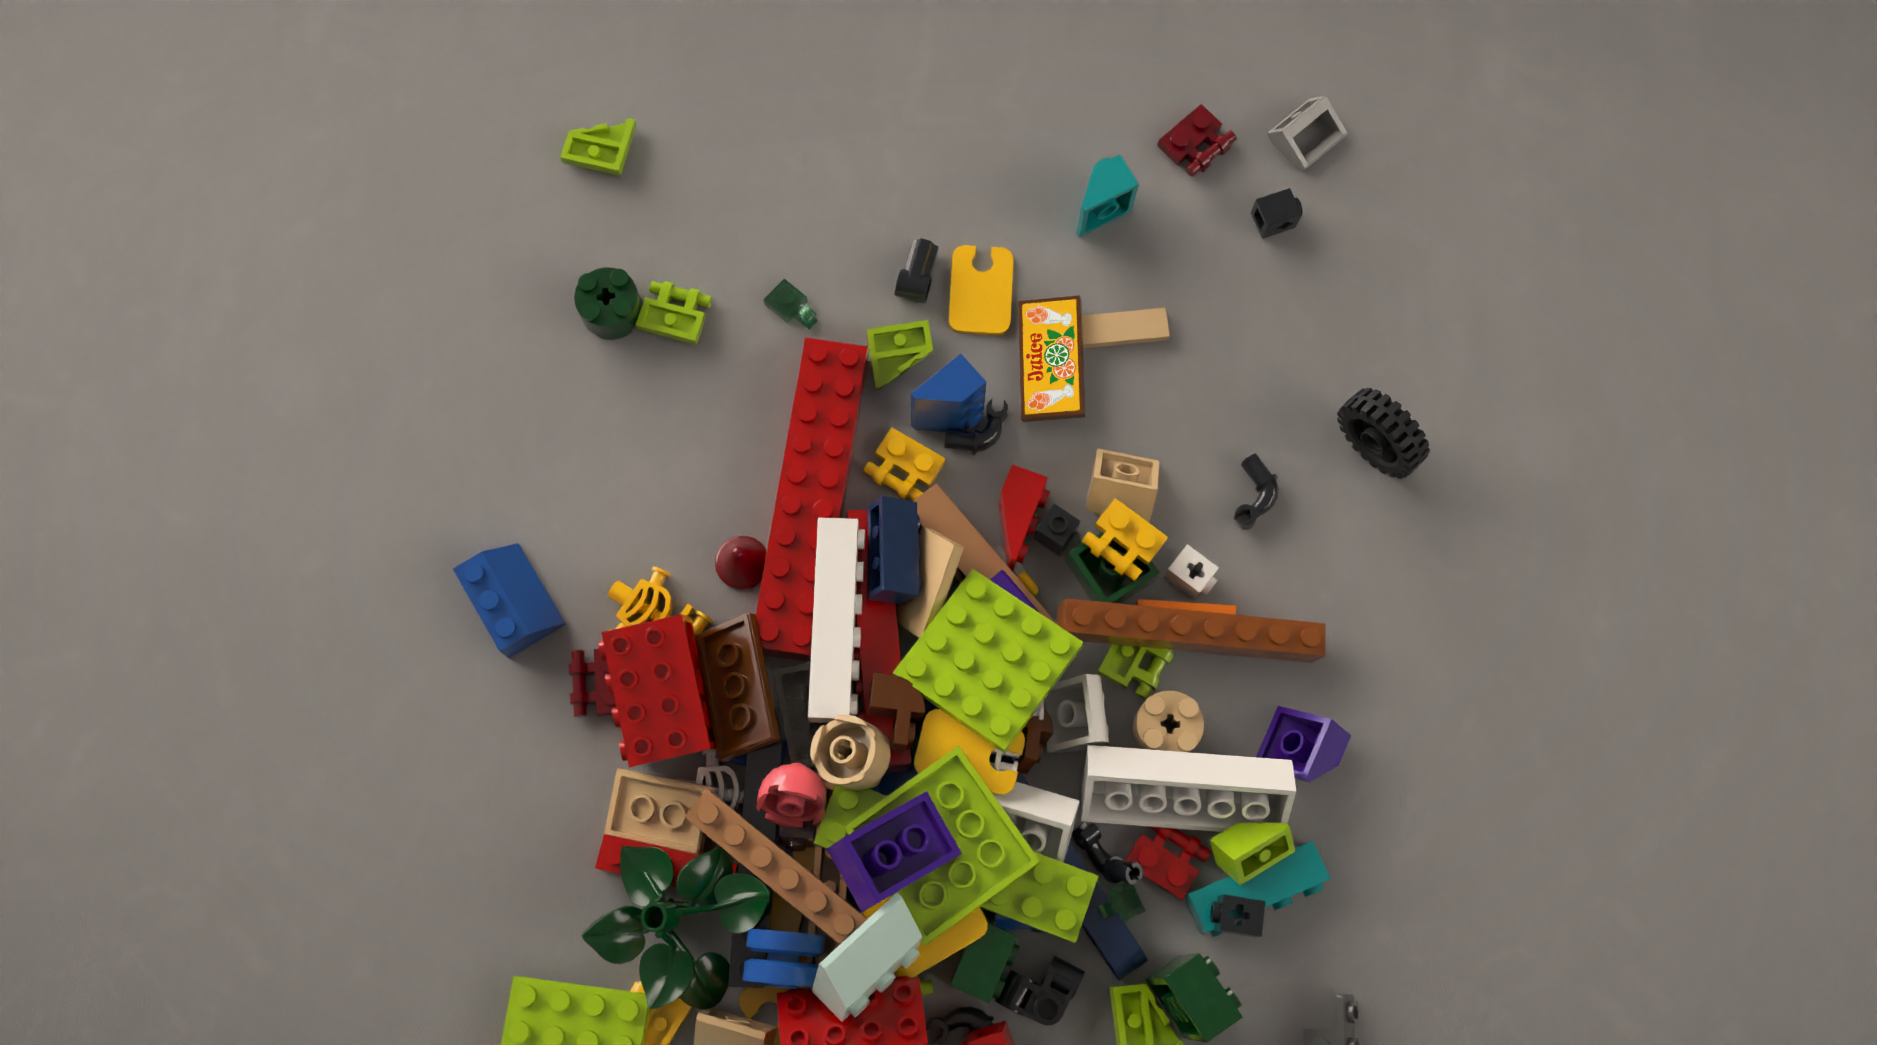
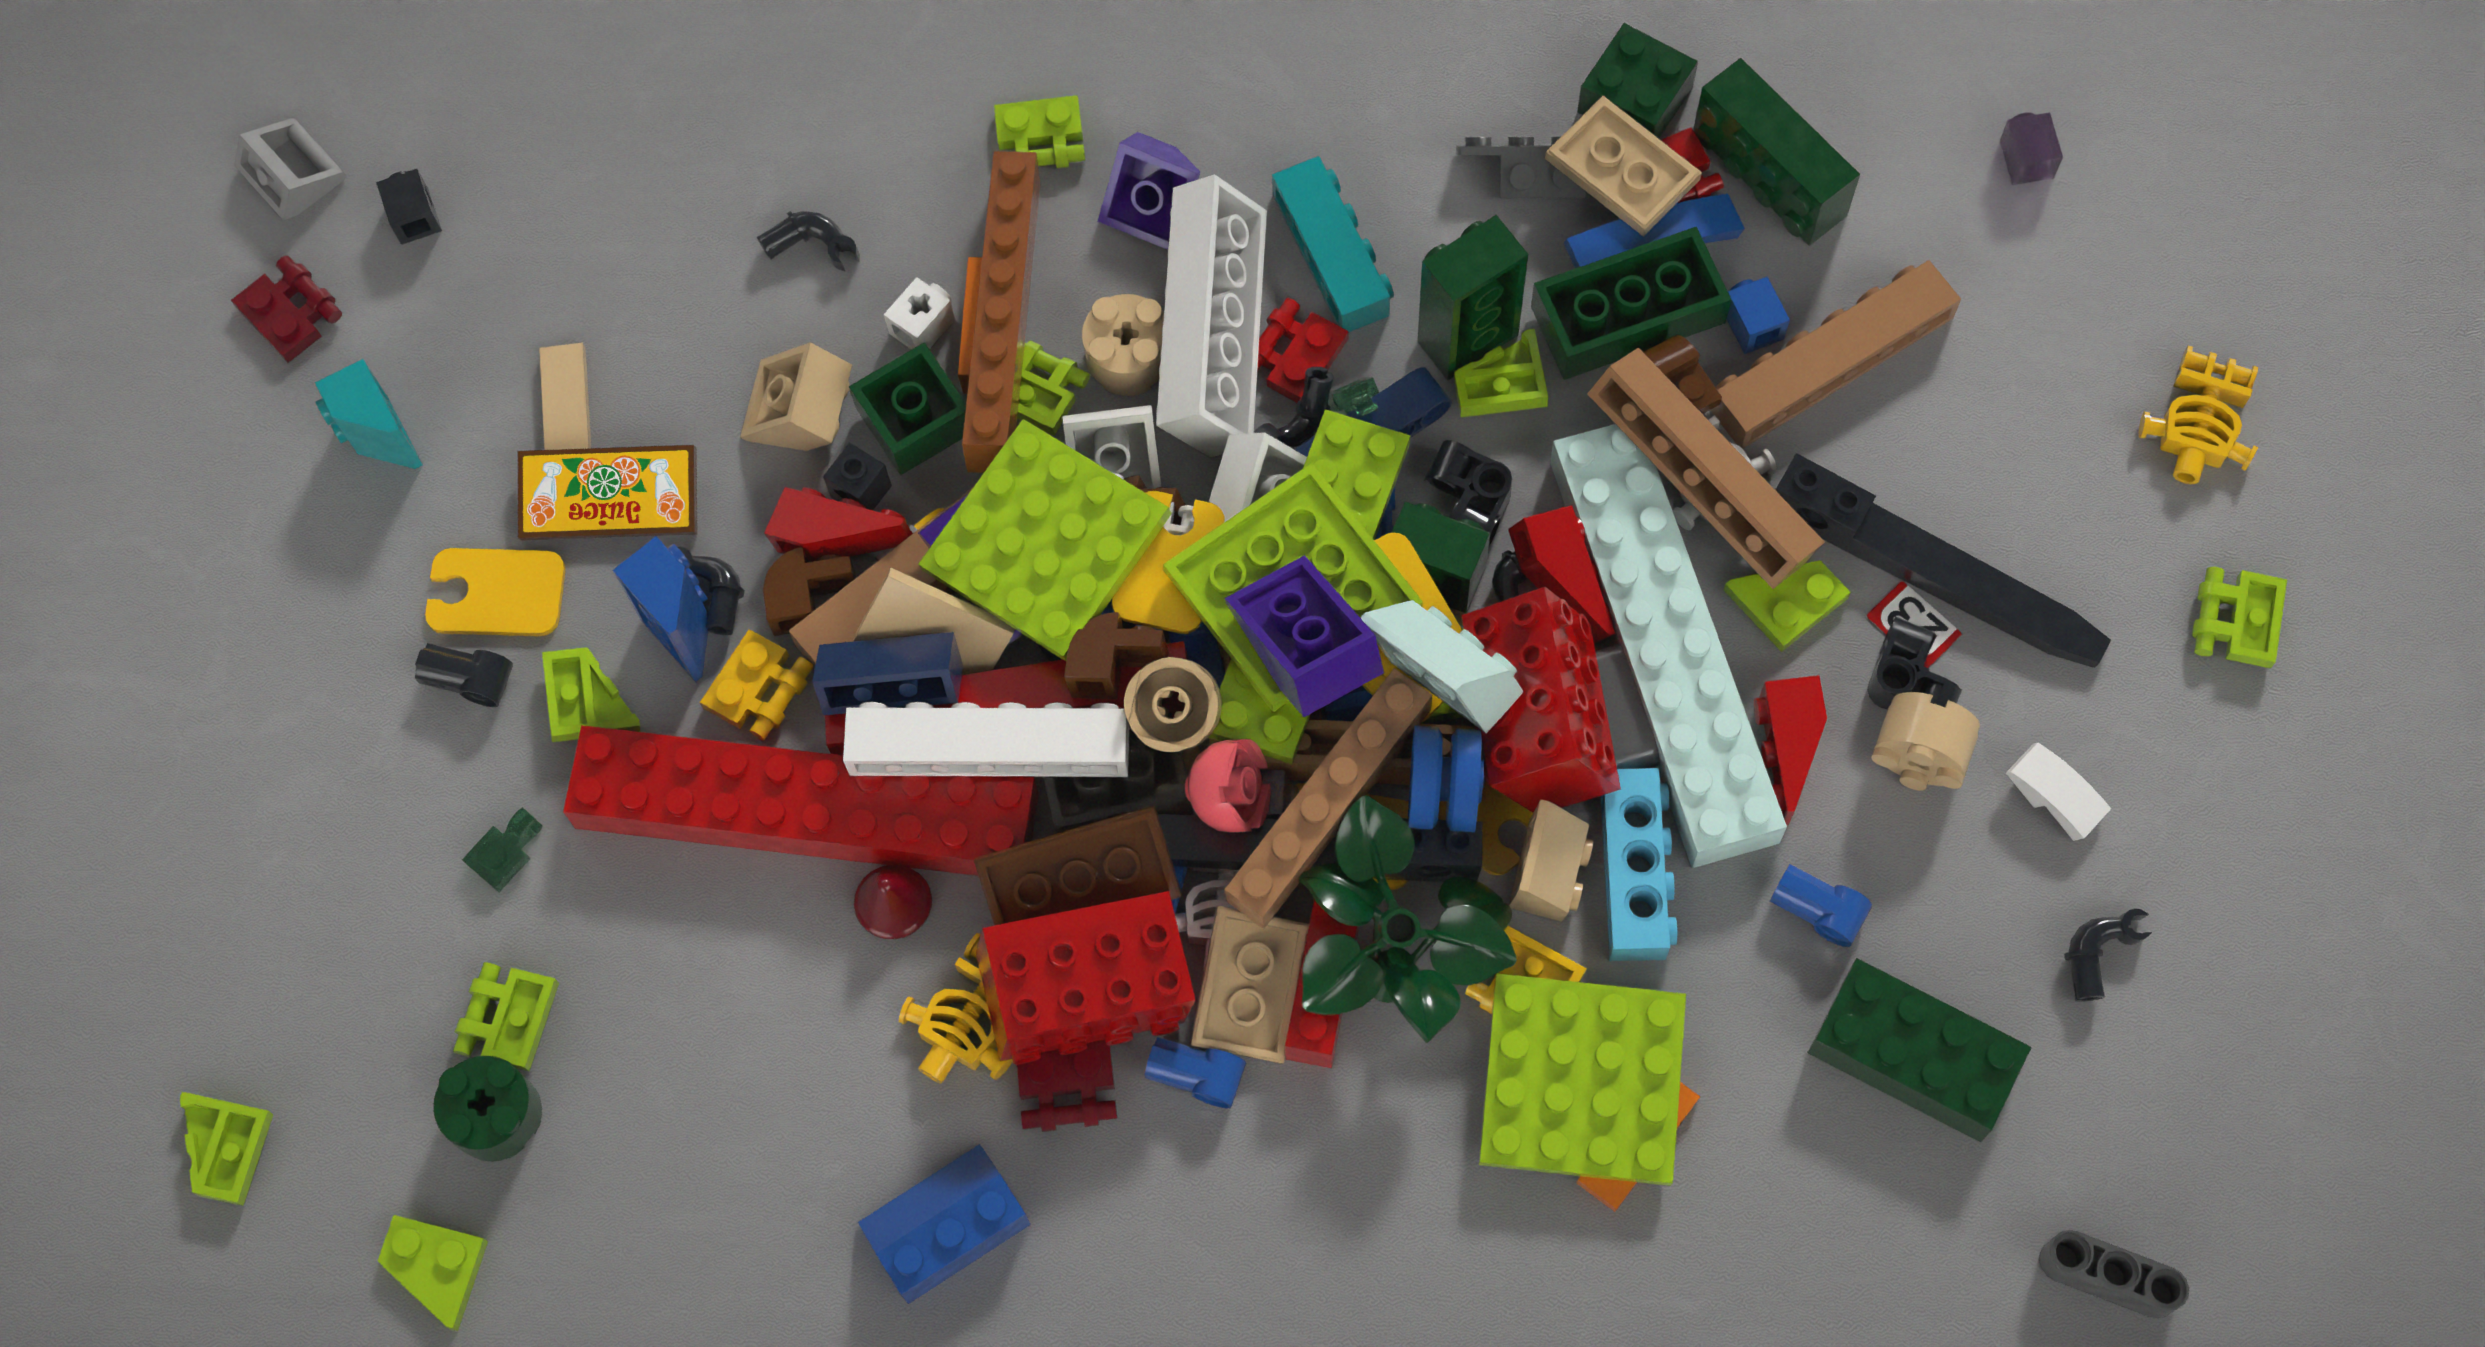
camera: 85 degrees left, 5 degrees down
(513, 278) = (433, 1265): none -> lime wing
(597, 780) = (1207, 1074): none -> blue piece
(974, 486) = (794, 583): none -> reddish brown brick
(1128, 531) = (870, 373): yellow plate -> none
(1251, 848) = (1284, 242): lime slope -> none
(1252, 913) = (1369, 237): black brick -> none
(1360, 659) = (1042, 123): none -> lime plate
(1383, 433) = (739, 74): black wheel -> none

